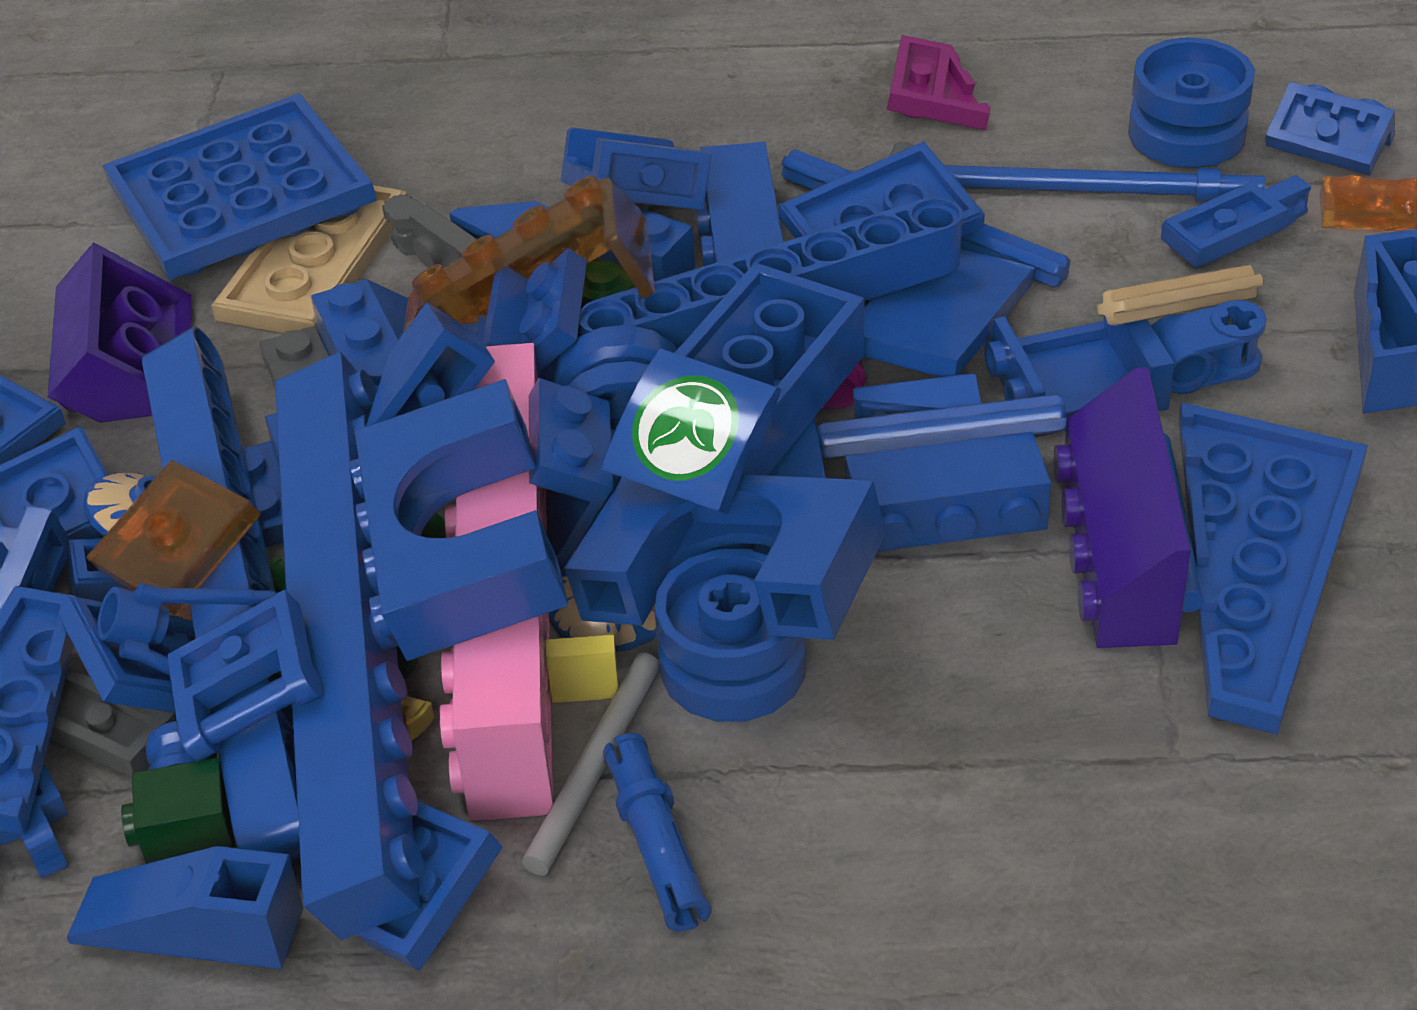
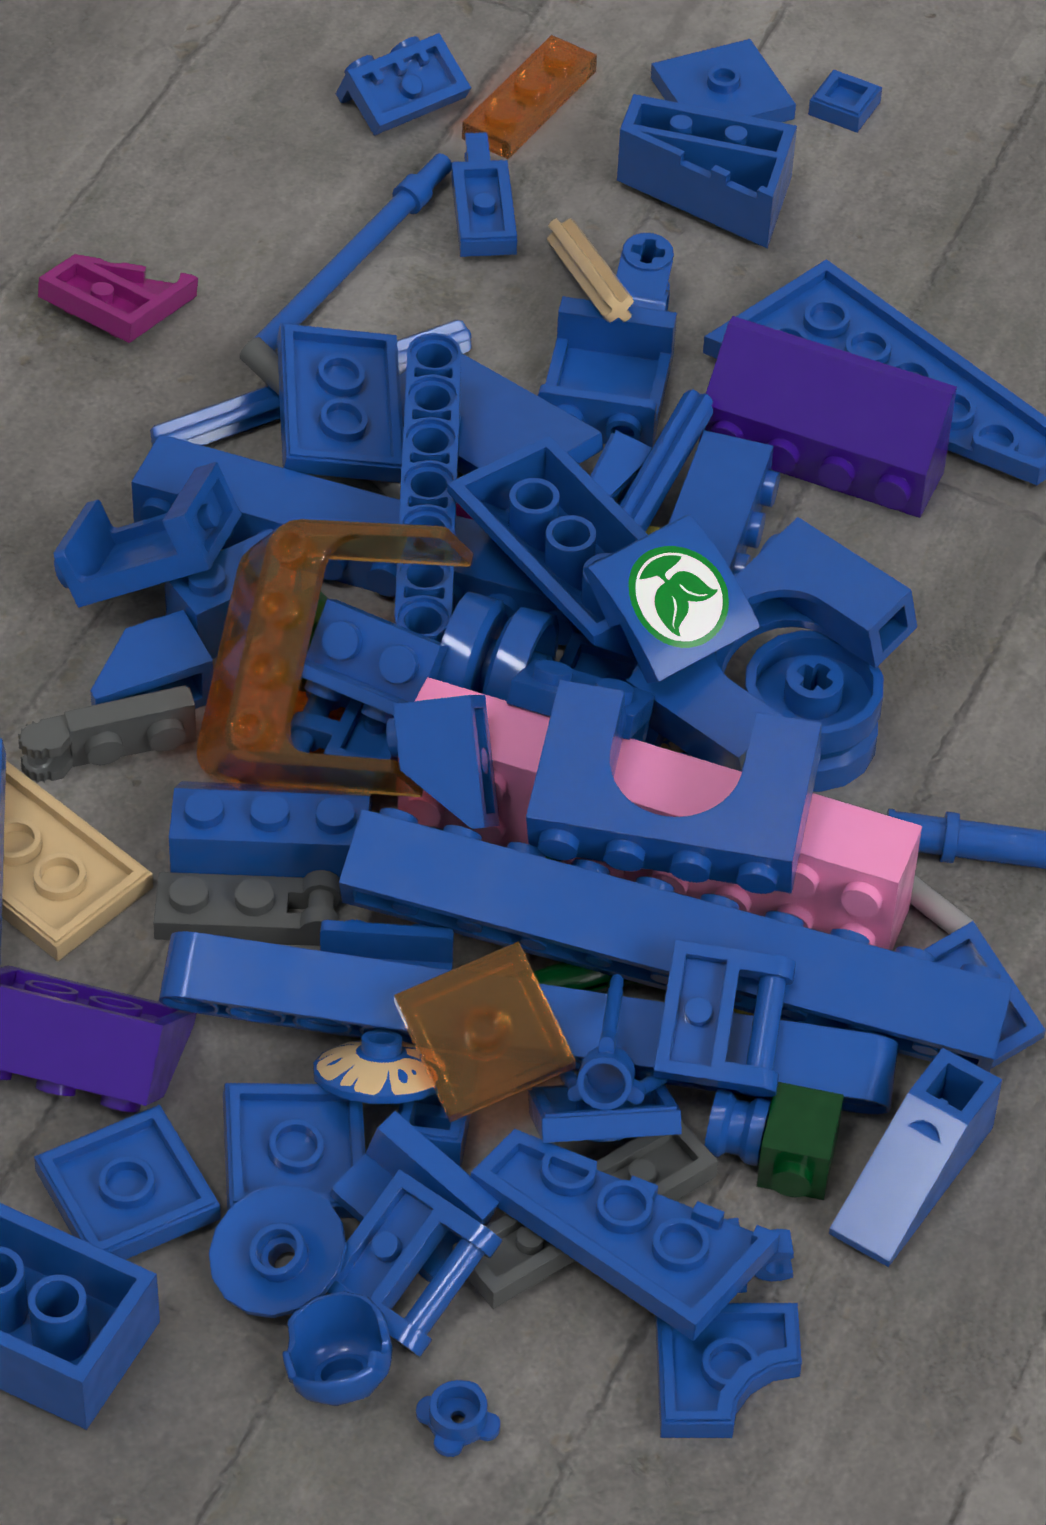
camera: 70 degrees left, 5 degrees up
(1191, 102) = (315, 143): blue wheel -> none

